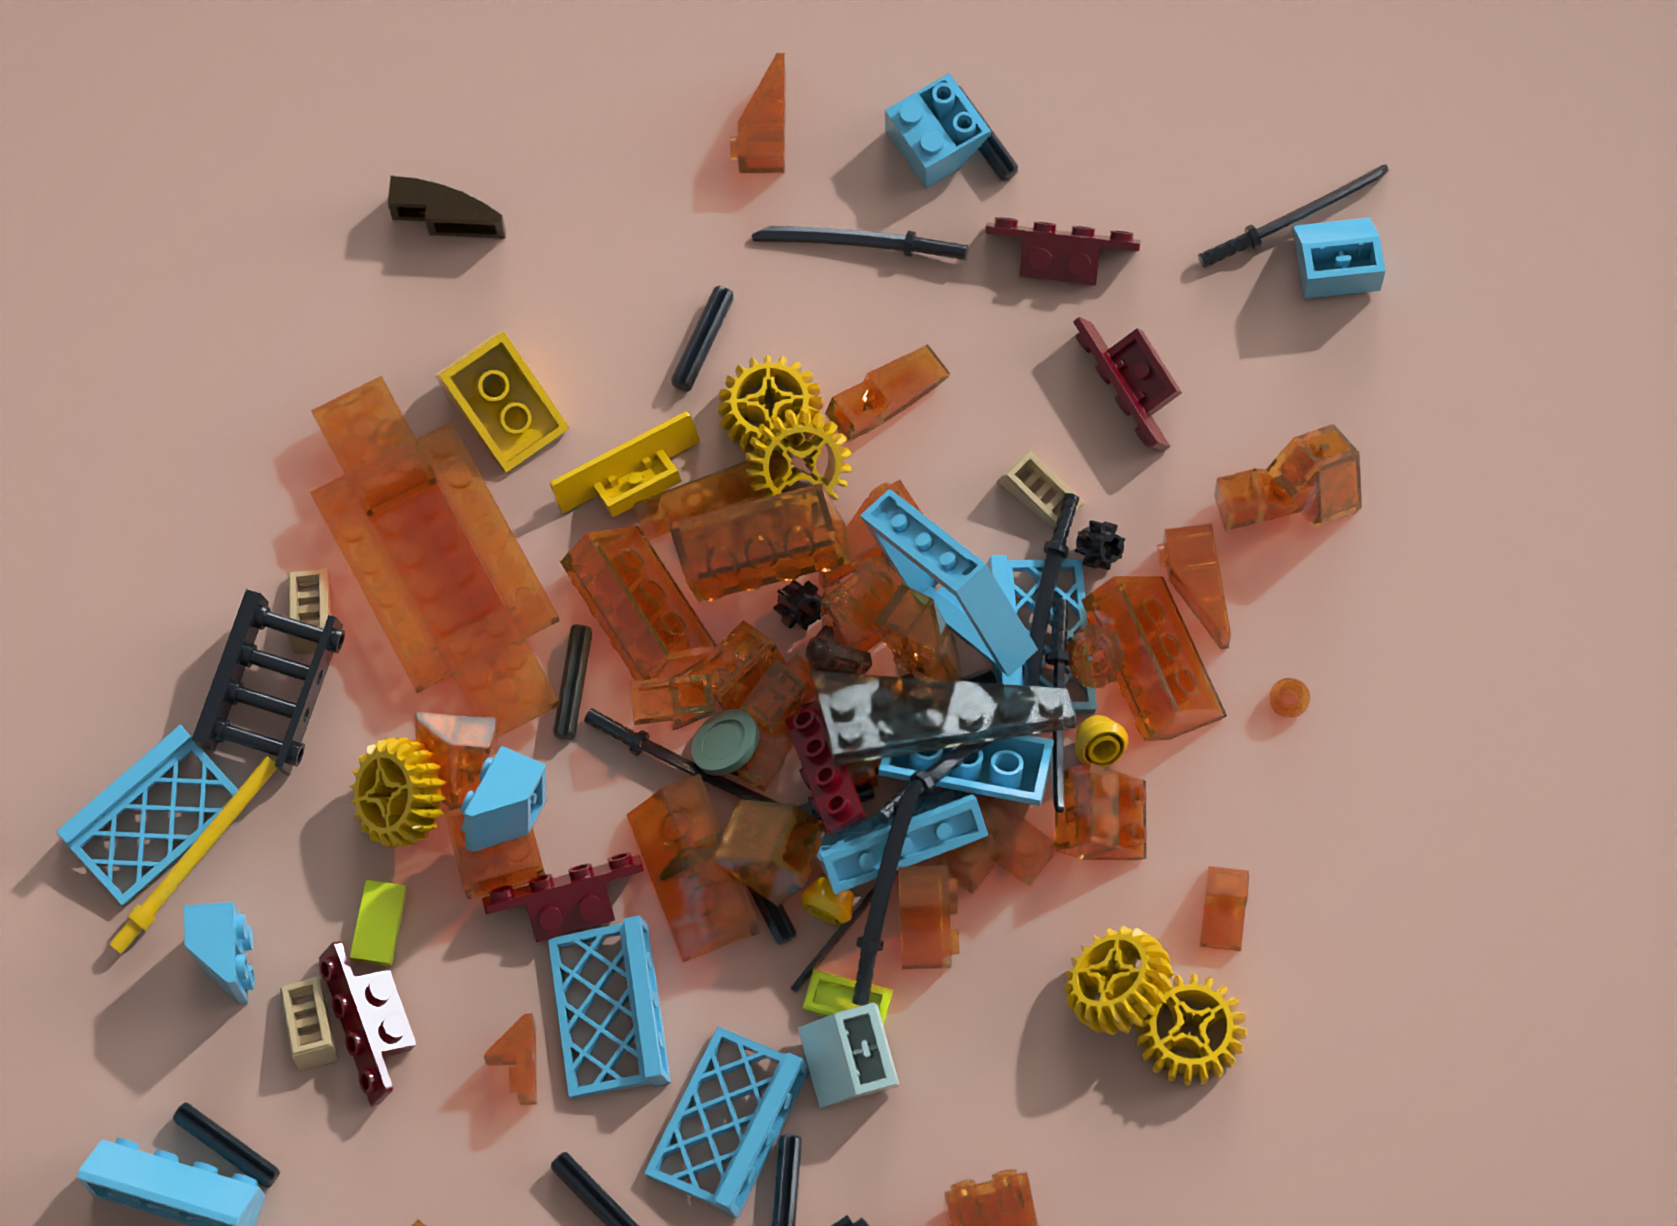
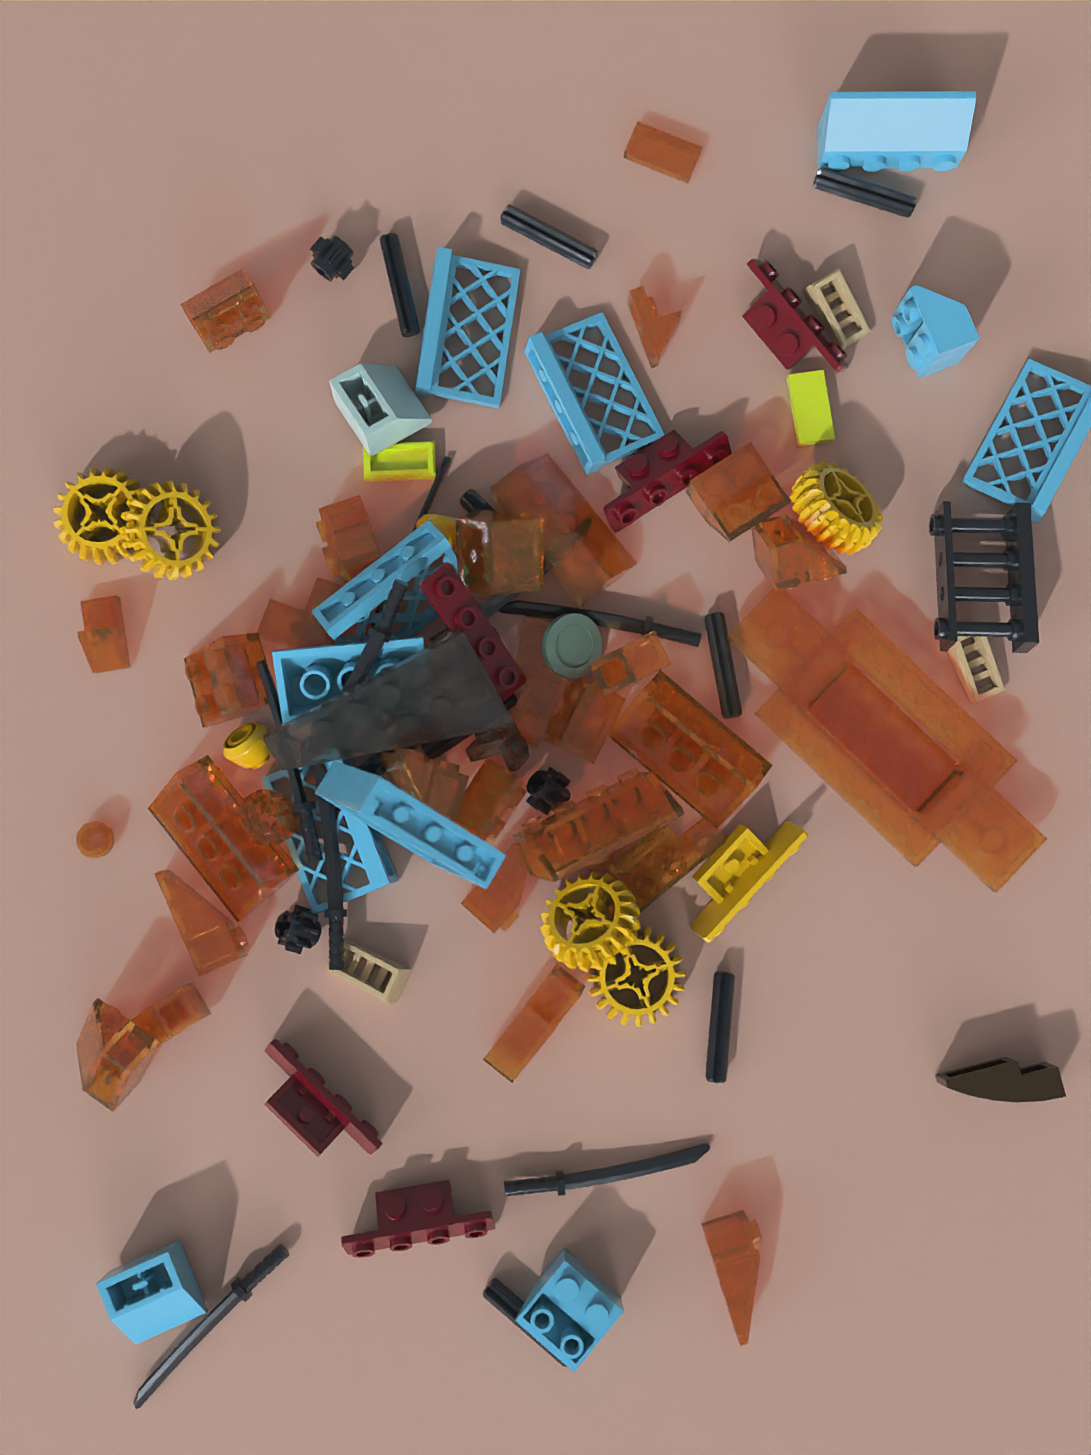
camera: 155 degrees right, 15 degrees up
(143, 916) = (1006, 356): yellow bar -> none
(502, 401) = (880, 906): yellow slope -> none
(505, 801) = (738, 507): medium azure slope -> none
(871, 941) = (388, 496): black sword -> none

